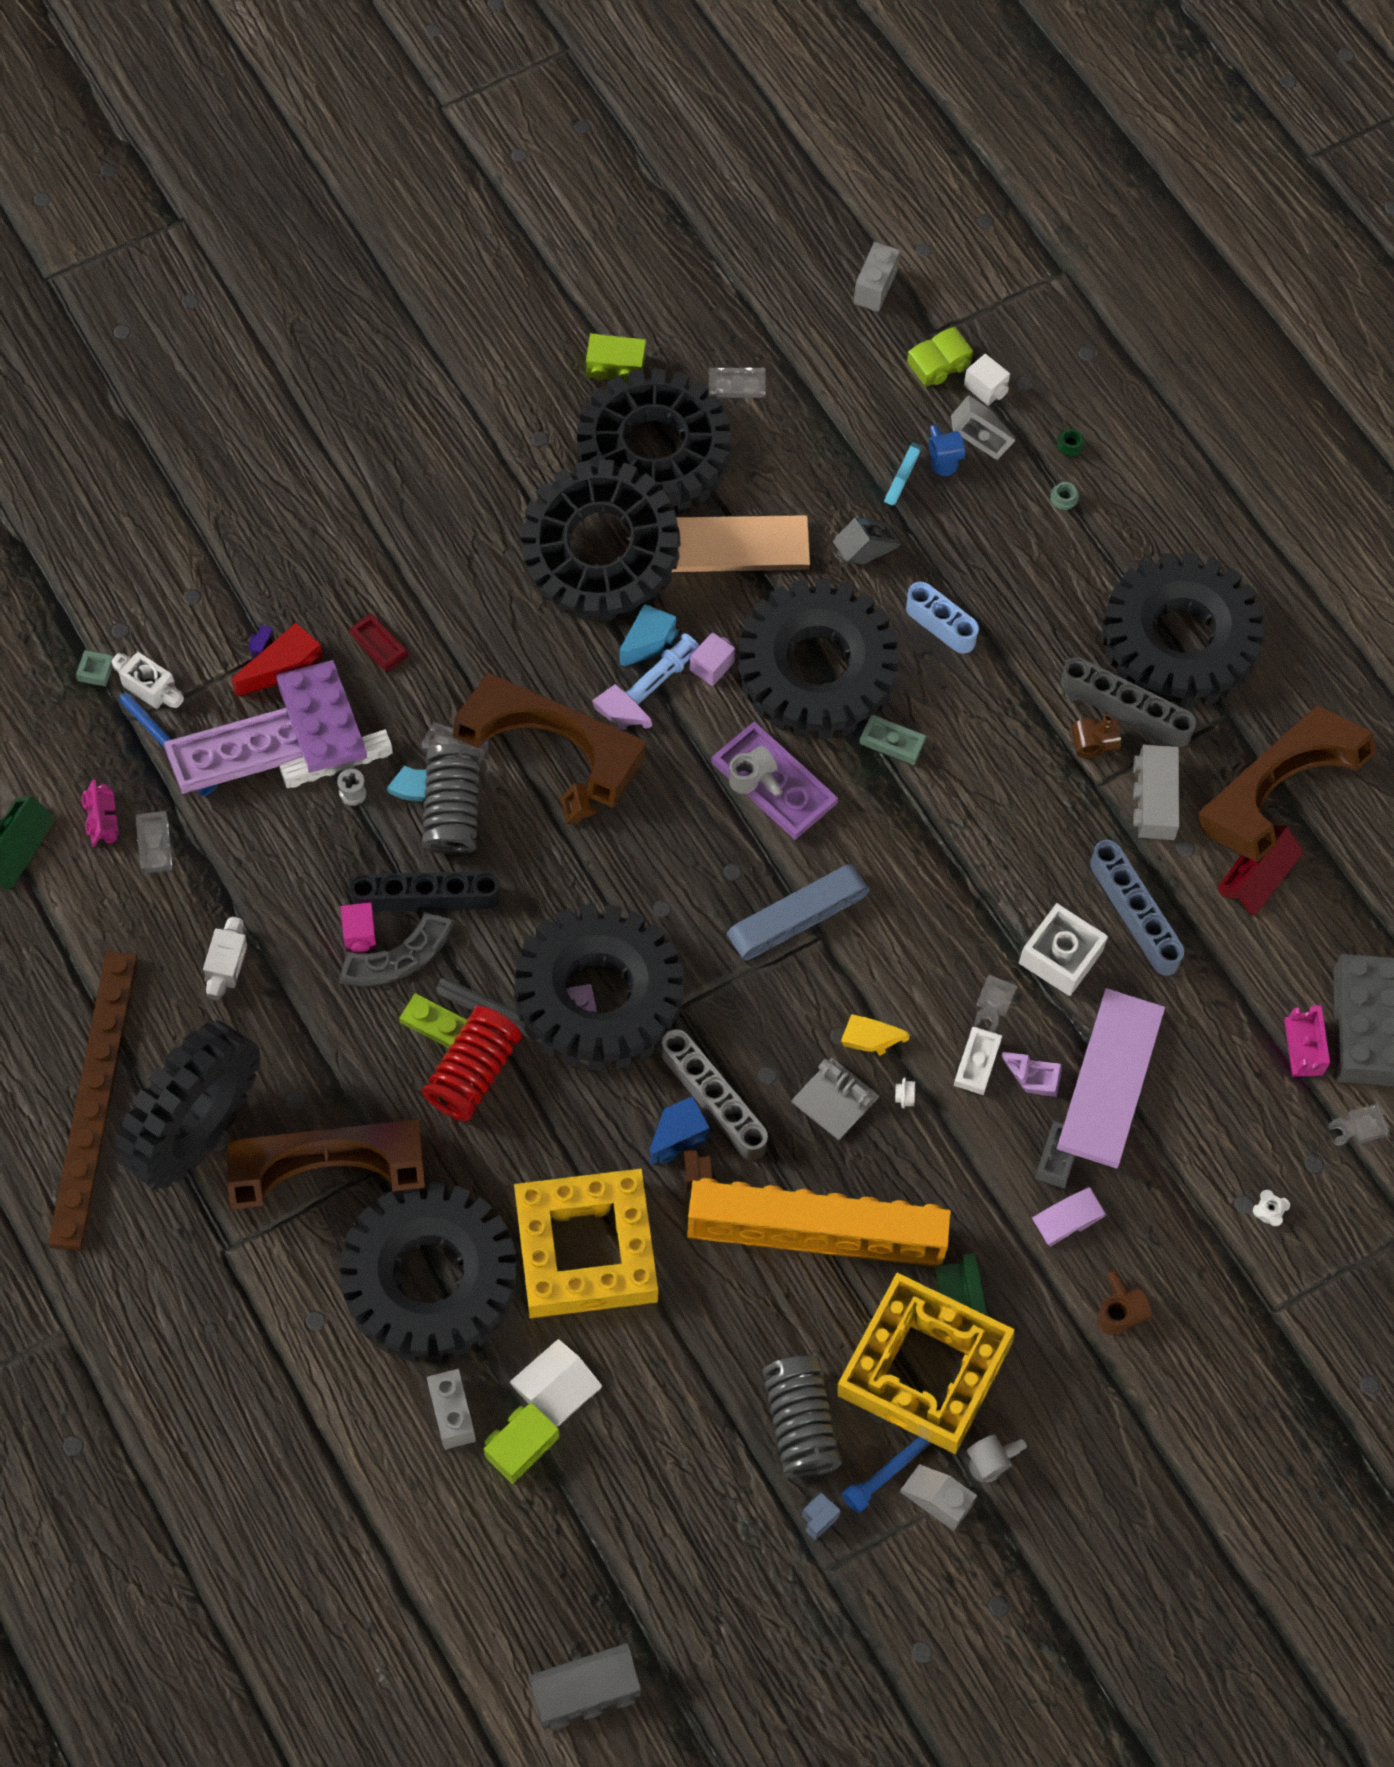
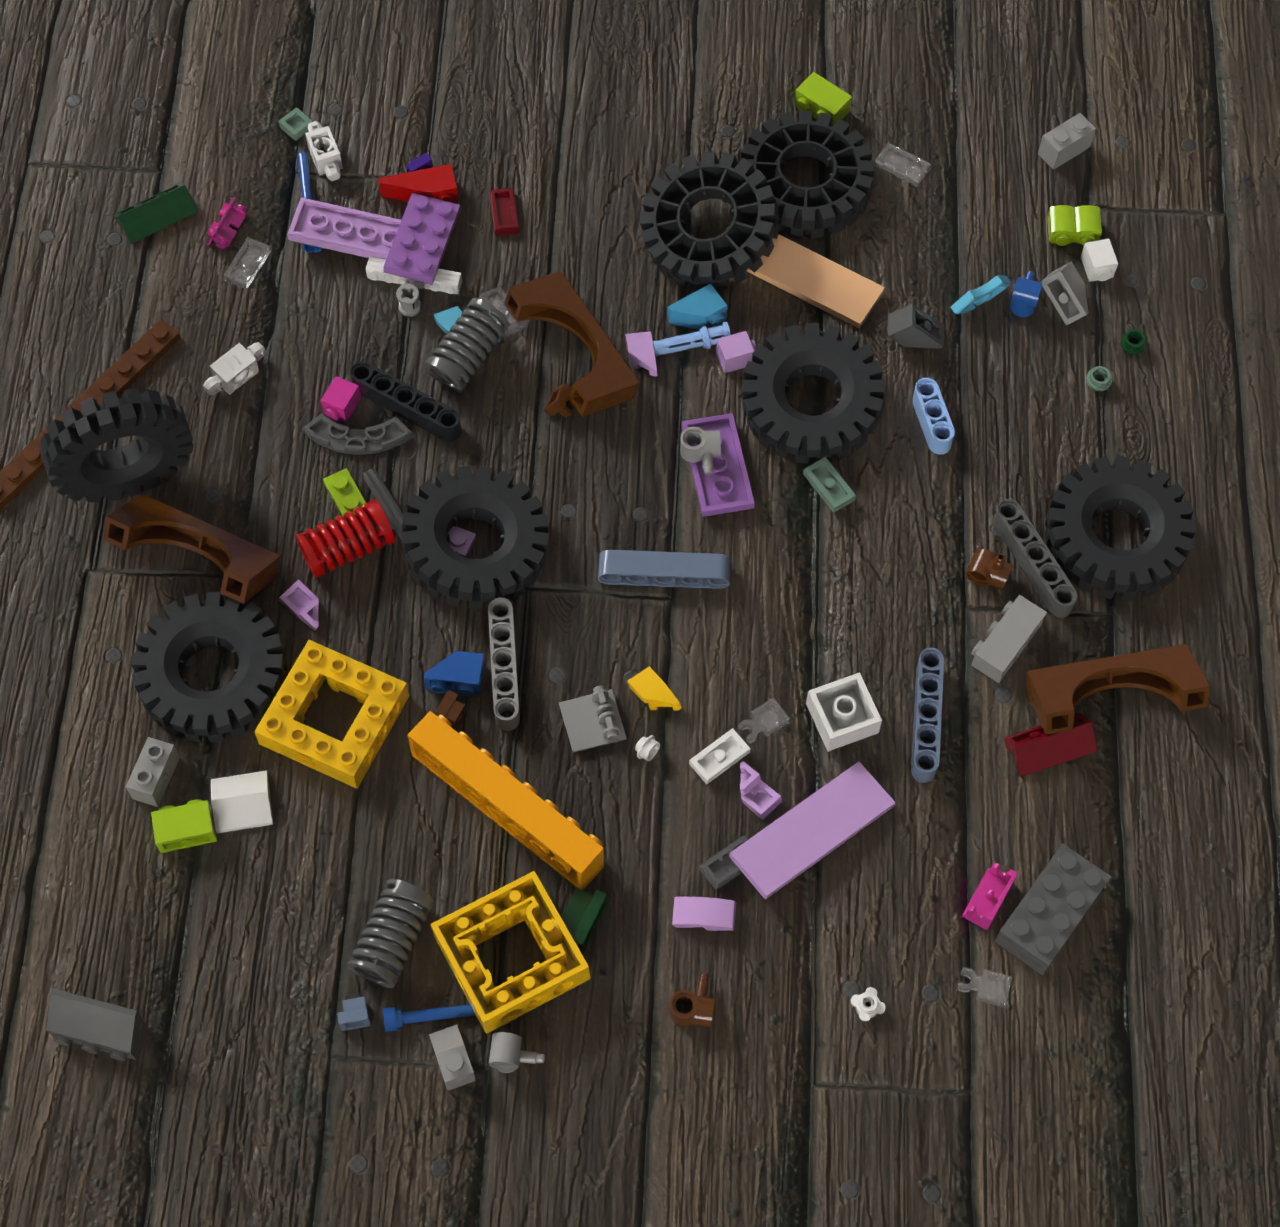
camera: 35 degrees right, 0 degrees up
(472, 1155) = (302, 604): none -> lavender slope

